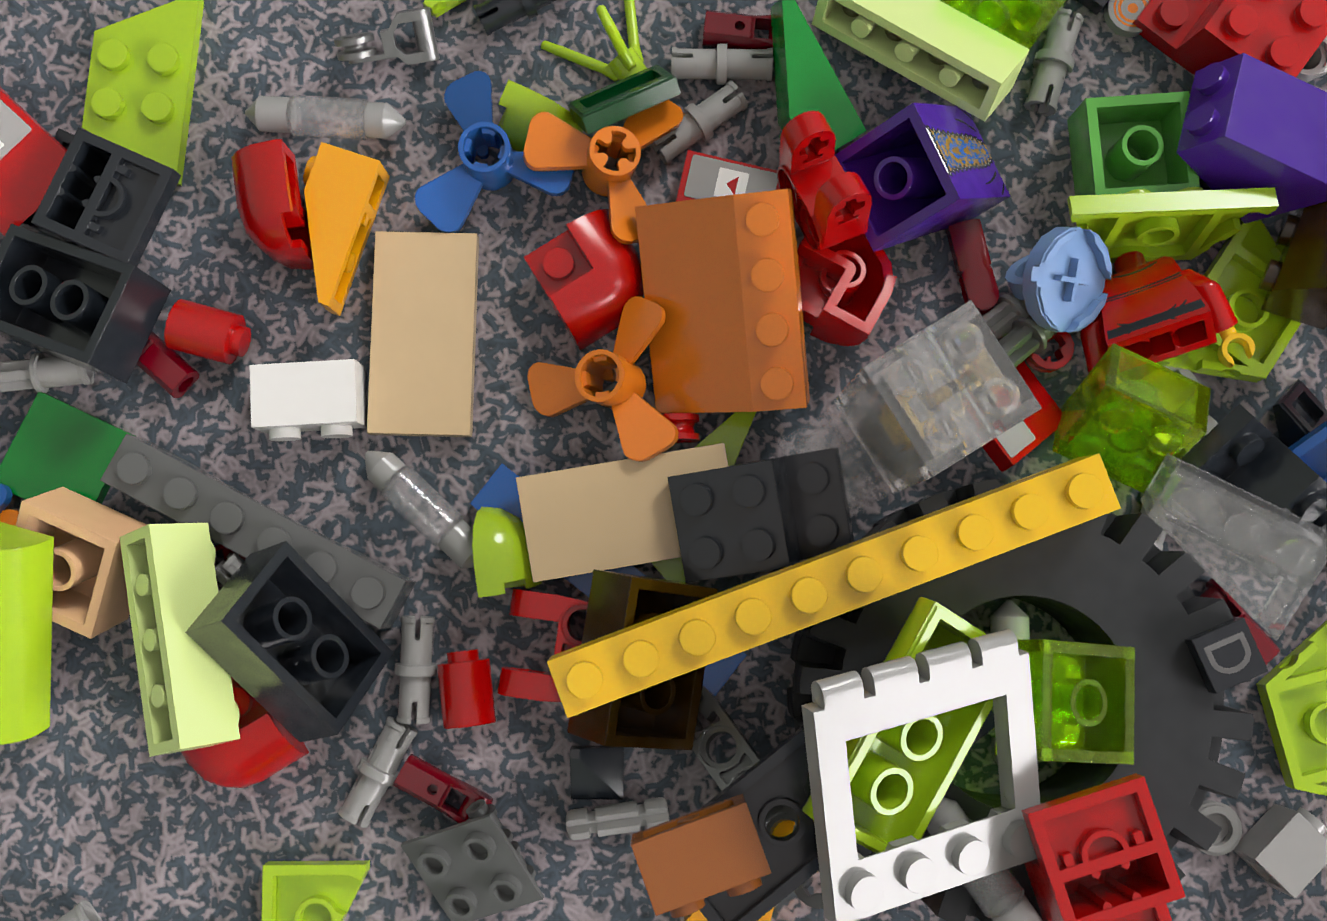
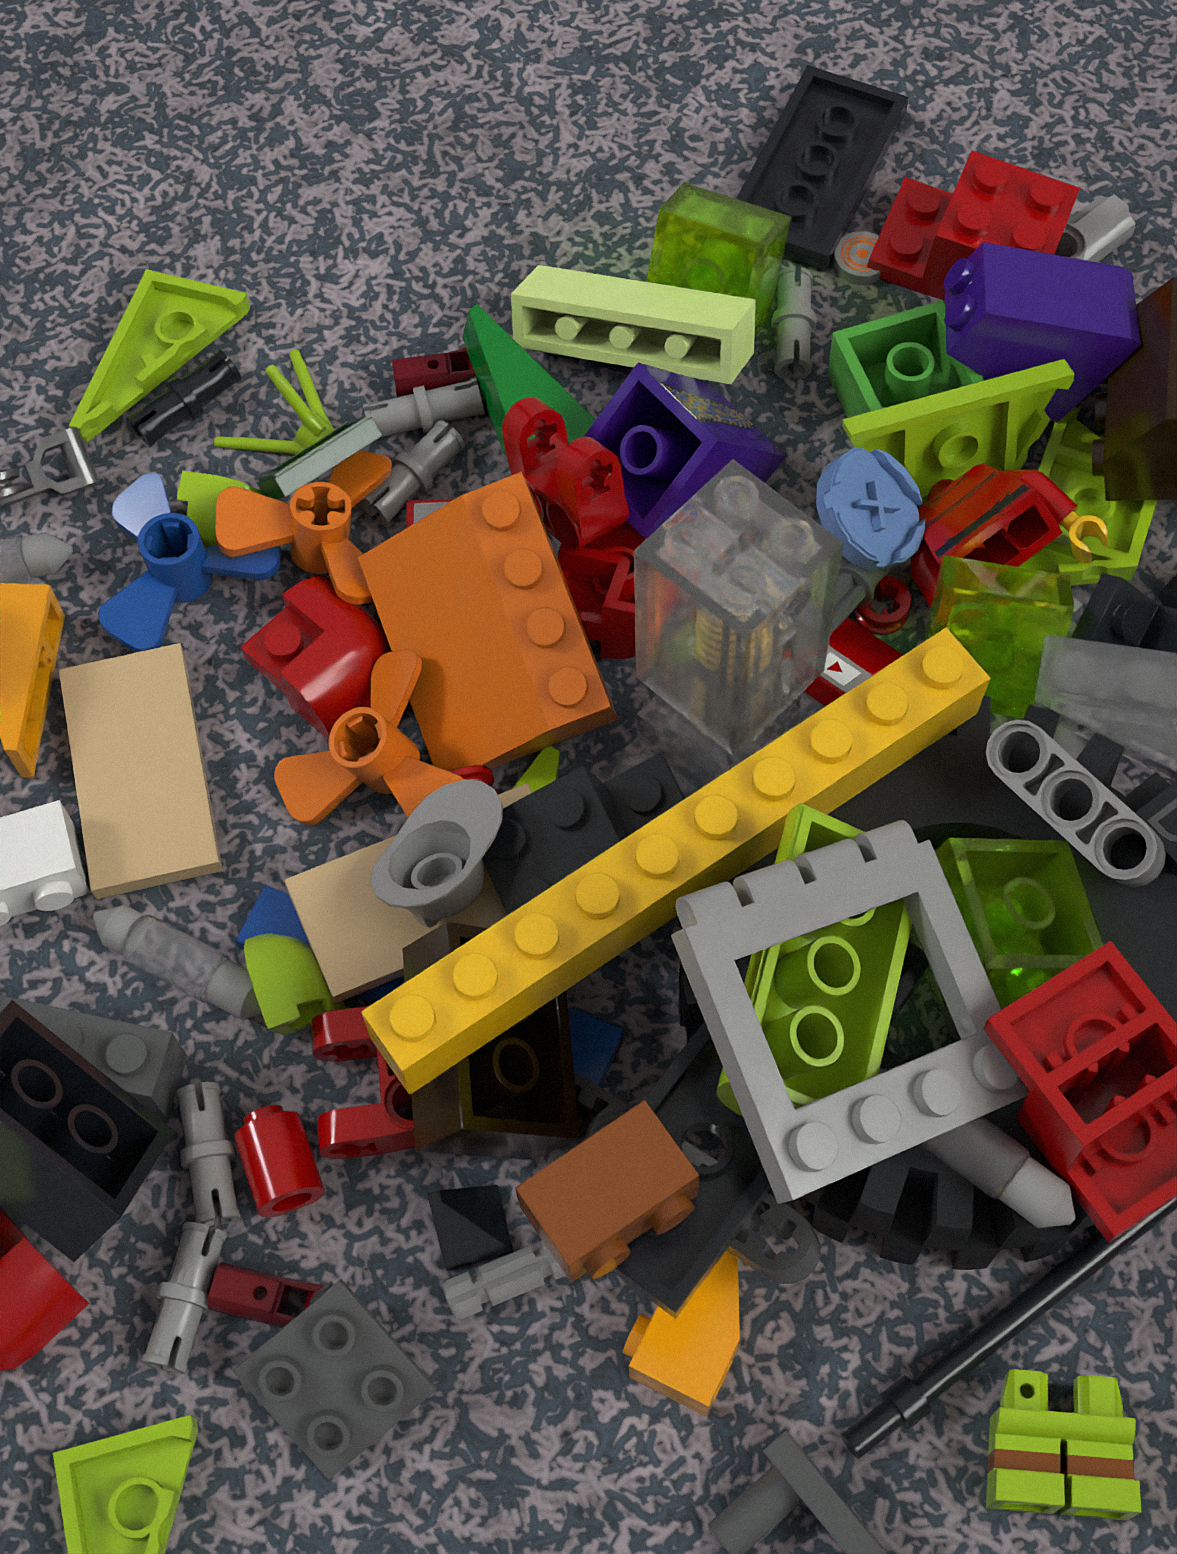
camera: 10 degrees left, 20 degrees down
(640, 497) = (439, 851): none -> light grey piece
(1153, 653) = (1055, 775): none -> light grey beam

